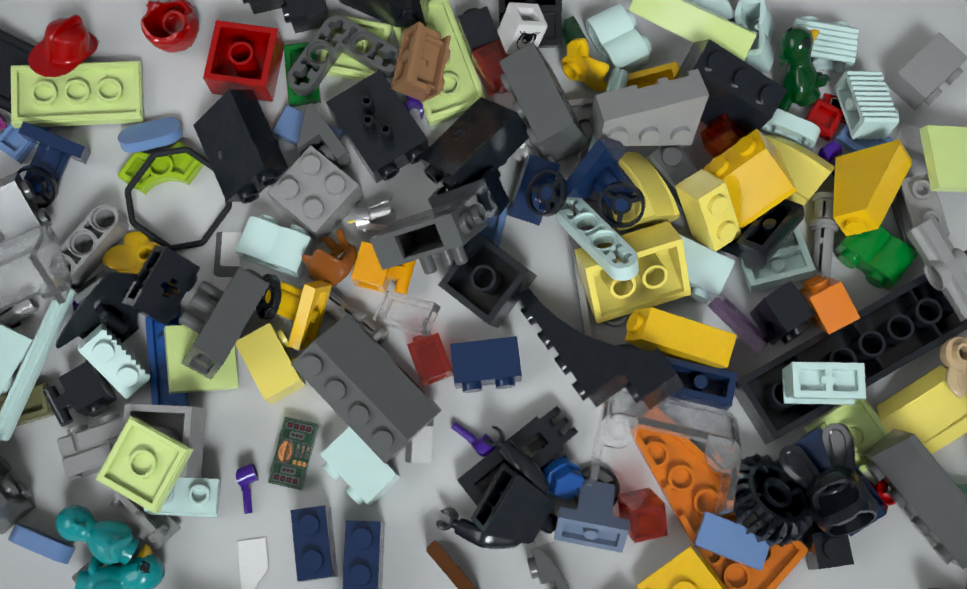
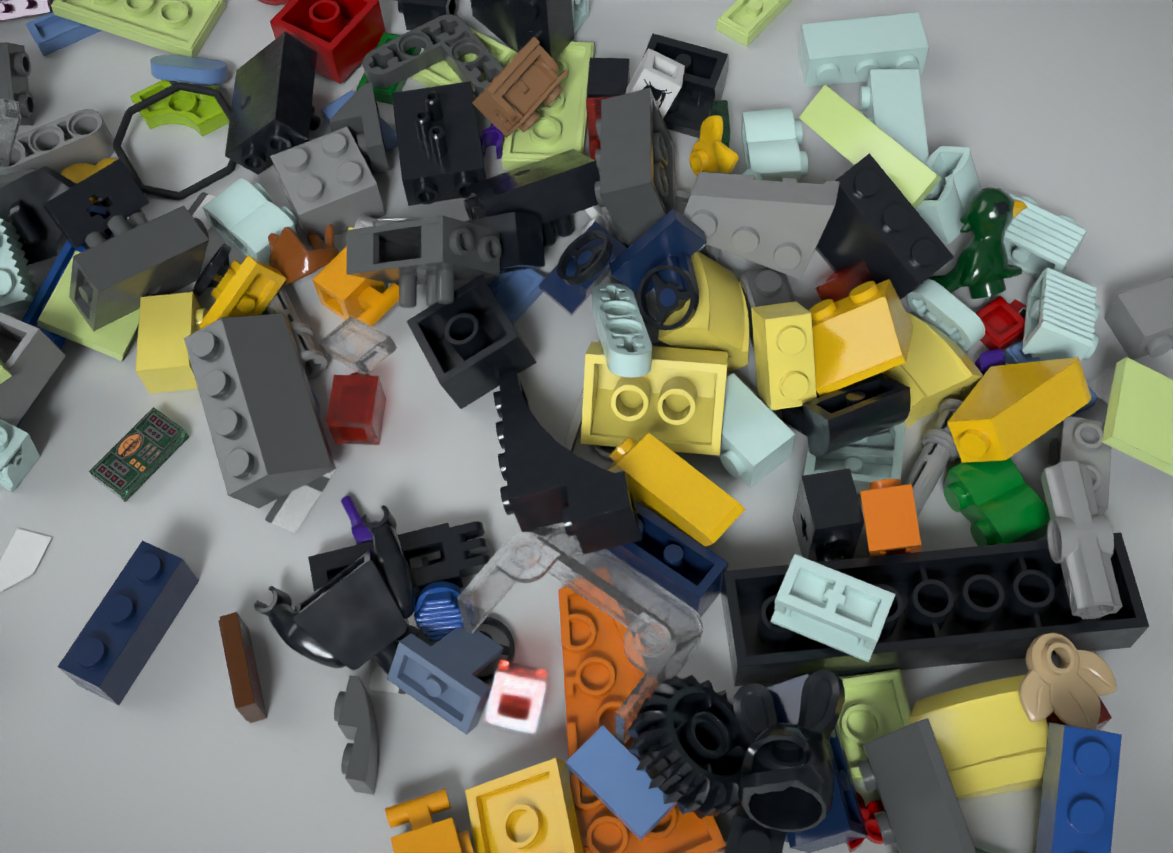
camera: 25 degrees right, 15 degrees down
(49, 160) = (71, 59): dark blue piece -> none
(245, 476) = (66, 455): dark purple hand -> none
(314, 543) = (93, 557): dark blue brick -> none
(358, 467) = (199, 497): light aqua brick -> none
(486, 363) = (420, 439): dark blue brick -> none
(739, 323) = (763, 508): clear purple tile -> none

